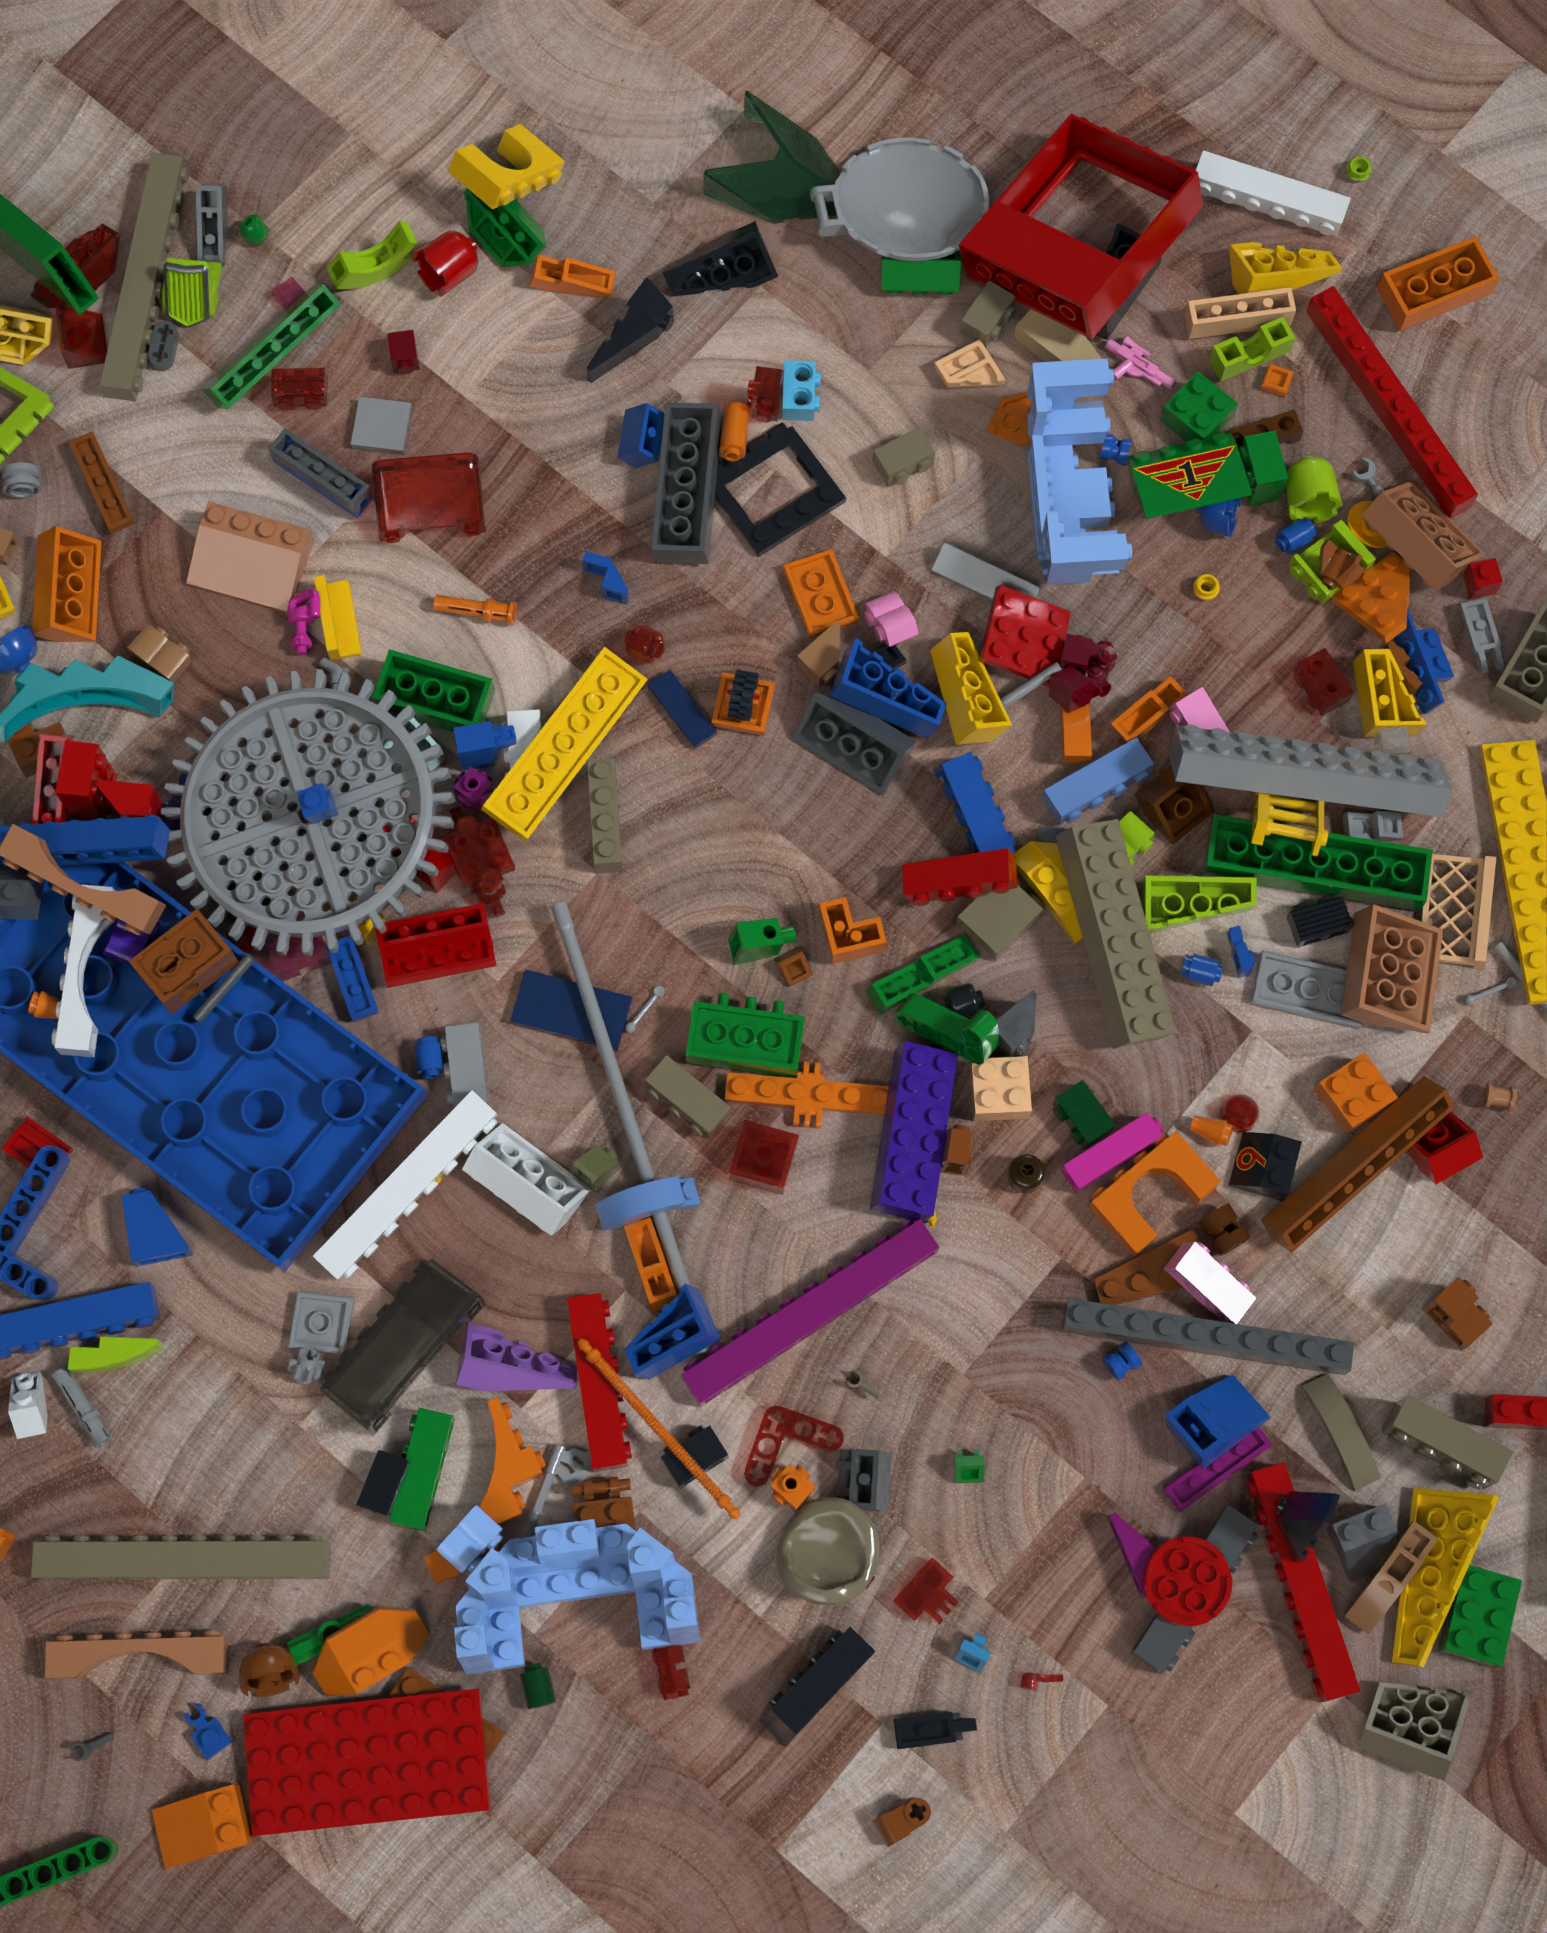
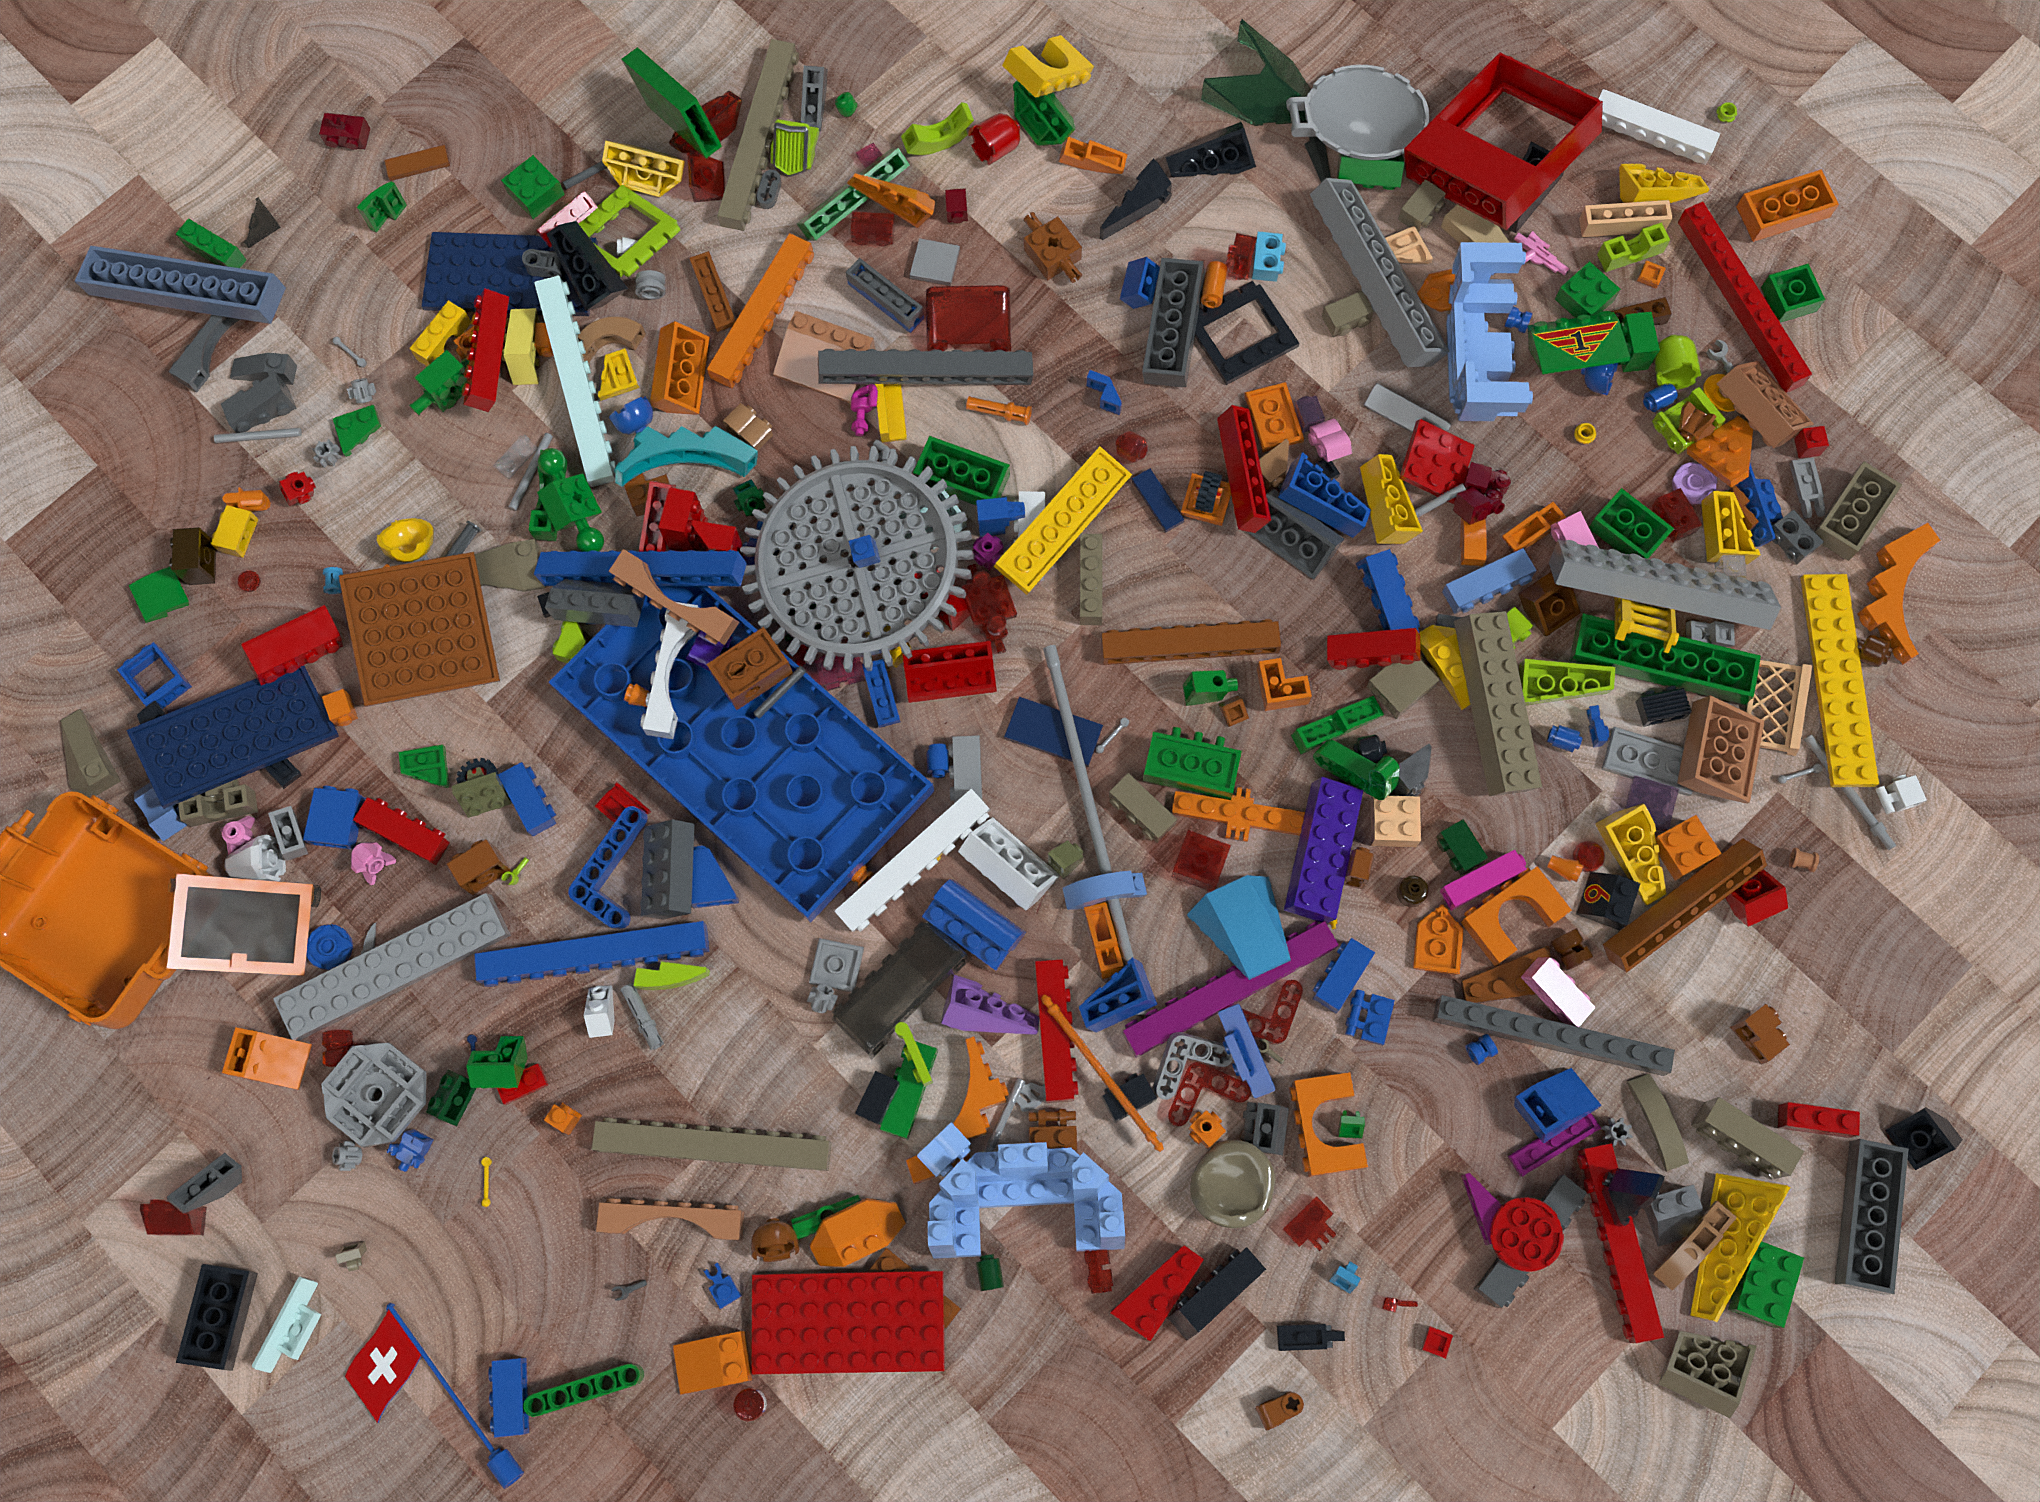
camera: 10 degrees right, 0 degrees up
(99, 1221) = (667, 869): none -> dark grey brick
(164, 504) = (760, 311): none -> orange brick
(167, 744) = (748, 497): none -> dark green brick
(261, 1878) = (758, 1404): none -> clear red head
(337, 352) = (903, 201): none -> orange wedge
(344, 1209) = (862, 876): none -> orange bush
(377, 562) = (925, 367): none -> dark grey brick
(423, 1423) = (912, 1053): none -> lime plate
(487, 1257) = (973, 923): none -> blue brick
(528, 398) = (1052, 248): none -> dark orange brick
(734, 885) = (1190, 642): none -> dark orange brick
(743, 1696) = (1154, 1298): none -> red wedge
(761, 1394) = (1185, 1051): none -> light grey beam
(785, 663) = (1243, 469): none -> red brick
(822, 1231) = (1244, 924): none -> dark azure wedge
(833, 1388) = (1245, 1052): none -> bracket
(857, 261) = (1318, 156): none -> pearl dark grey bar
(862, 585) = (1308, 412): none -> clear purple brick
(869, 1347) = (1276, 1021): none -> clear red beam
(935, 1510) = (1319, 1157): none -> orange arch
(938, 403) = (1379, 273): none -> light grey brick
(947, 1283) = (1342, 975): none -> blue brick
(992, 1336) = (1377, 1017): none -> blue plate
(1062, 1235) = (1438, 943): none -> orange tile
(1089, 1721) = (1437, 1342): none -> red plate
(1267, 700) = (1630, 526): none -> green brick
(1293, 1096) = (1633, 844): none -> yellow wedge
(1298, 1444) = (1622, 1128): none -> light grey gear
(1310, 1042) = (1657, 797): none -> clear purple tile
(1343, 638) = (1694, 481): none -> lavender tile
(1450, 393) = (1793, 293): none -> green brick
(1474, 694) = (1798, 533): none -> dark grey brick

